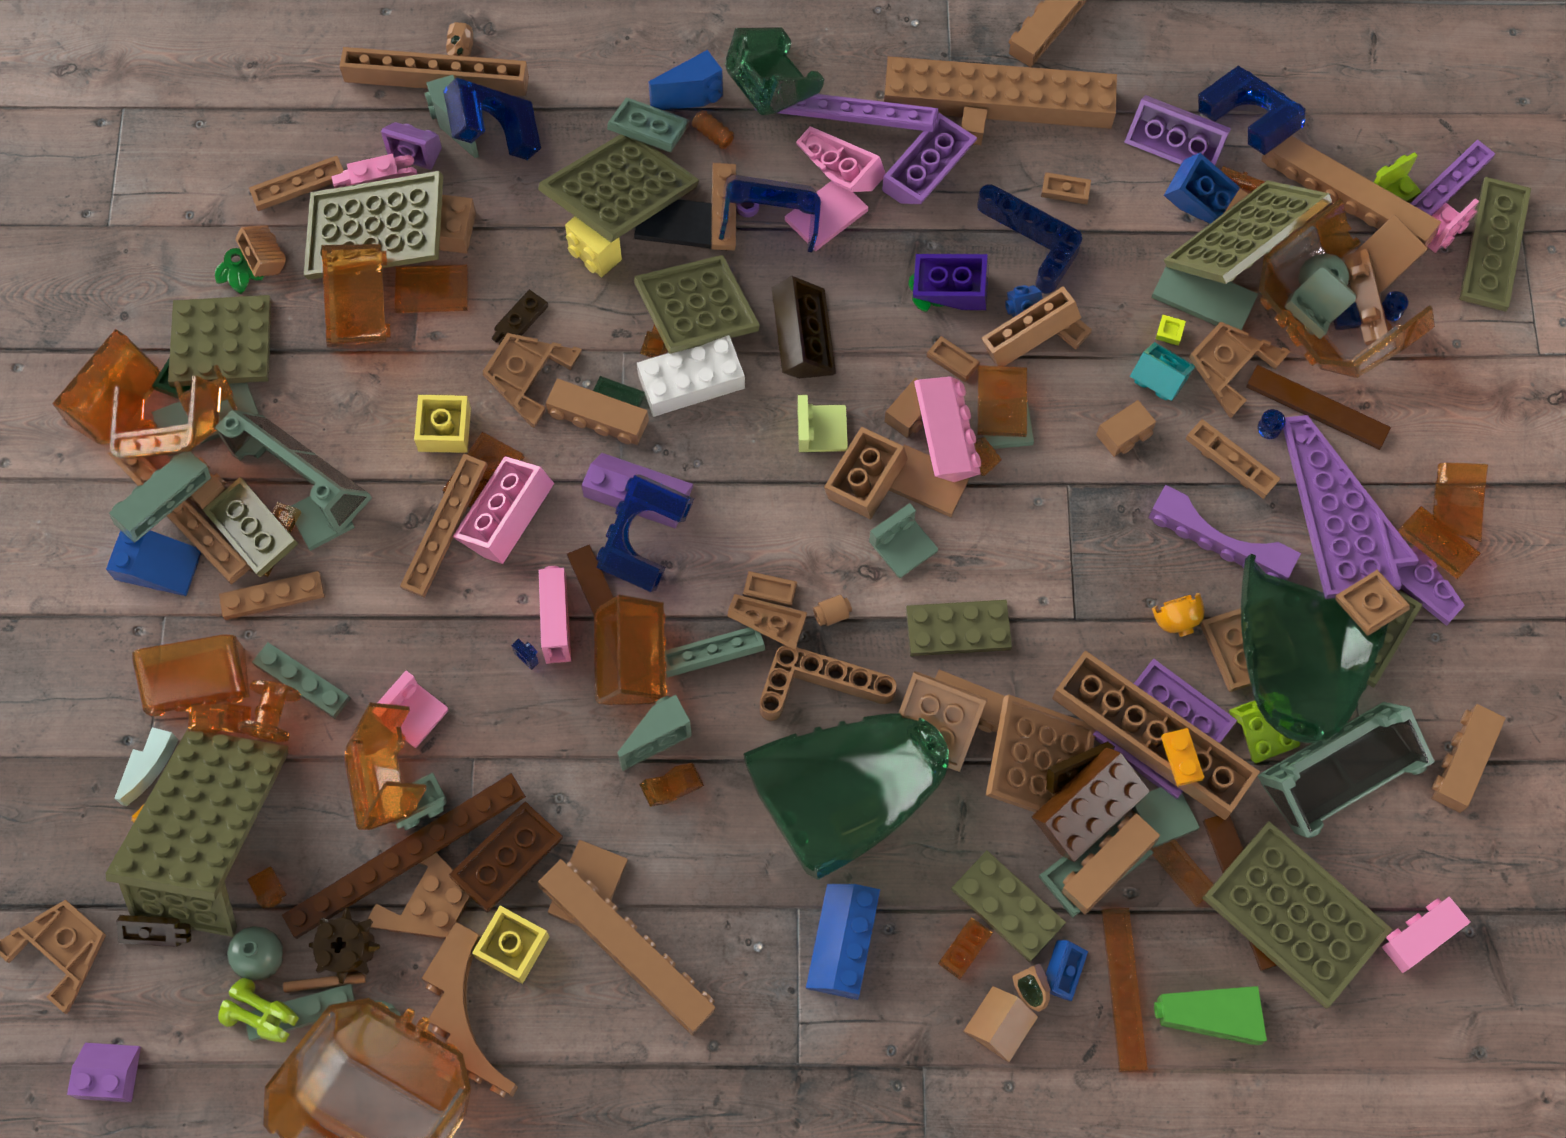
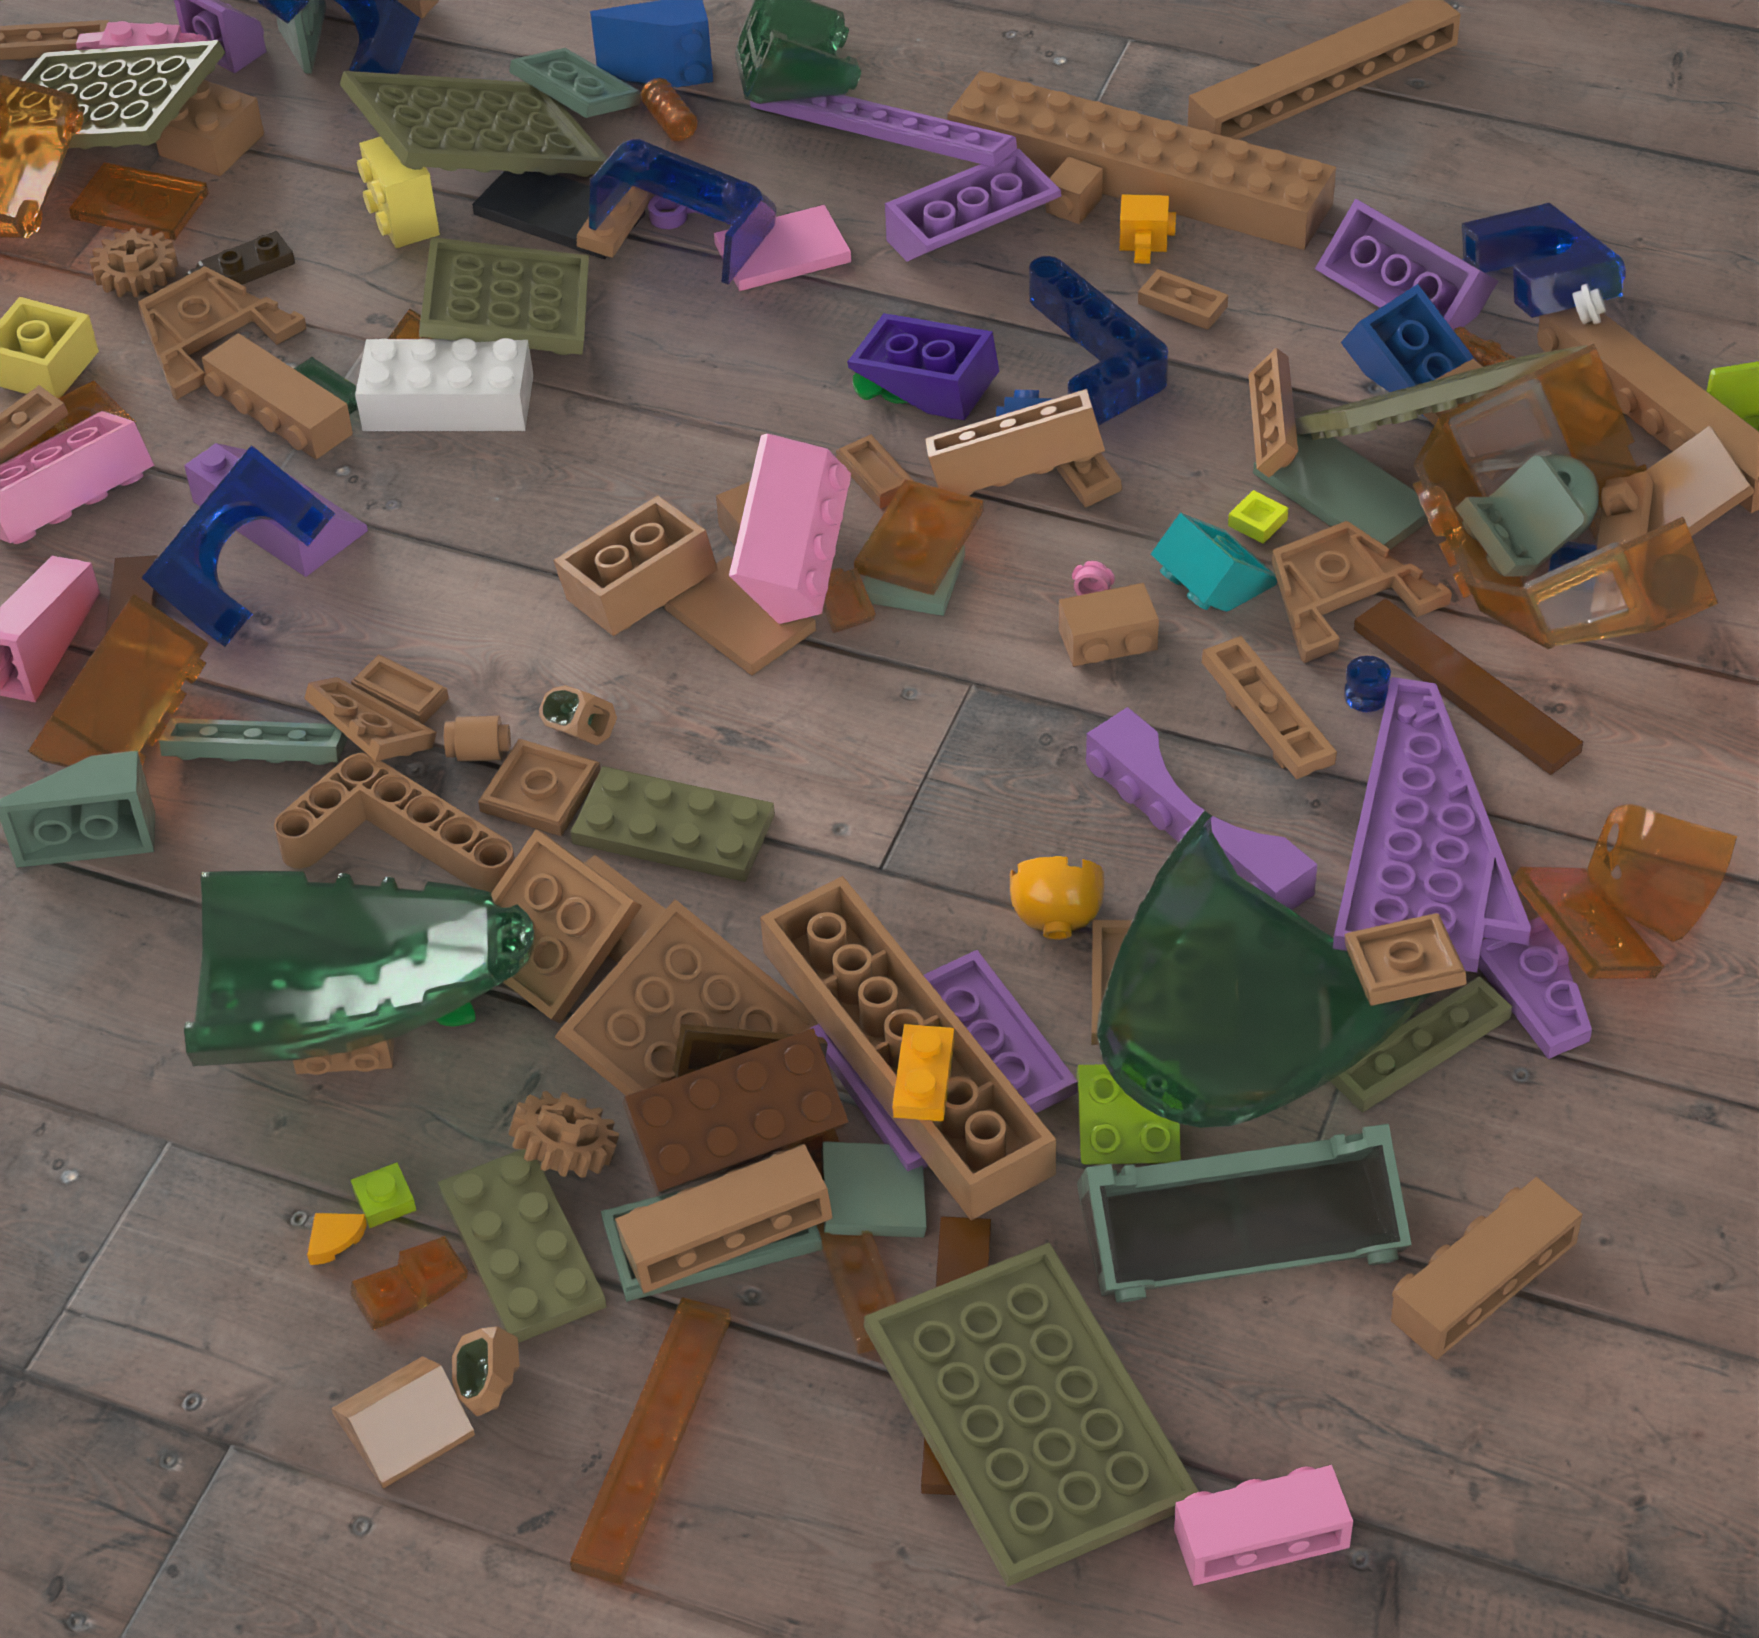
camera: 25 degrees right, 20 degrees down
(450, 347) = (134, 262): none -> medium nougat gear
(672, 786) = (87, 904): clear orange slope -> none
(803, 329) = (656, 372): dark brown slope -> none
(821, 427) = (593, 497): yellowish green bracket -> none
(841, 161) = (843, 186): bright pink wedge -> none
(843, 940) = (214, 1205): blue slope -> none
(877, 578) = (578, 714): none -> medium nougat rock
(877, 627) = (539, 787): none -> medium nougat tile
(902, 541) = (645, 672): sand green bracket -> none
(914, 935) = (334, 1234): none -> light orange tile
(926, 902) = (383, 1195): none -> lime plate
(1004, 840) = (563, 1134): none -> medium nougat gear
(1023, 141) = (1145, 225): none -> light orange brick
(1065, 969) = (564, 1374): blue slope -> none
(1103, 400) = (1092, 578): none -> bright pink plate
(1152, 259) = (1273, 413): none -> medium nougat plate
(1217, 1013) = (792, 1521): bright green slope -> none
(1294, 140) = (1589, 304): none -> white plate

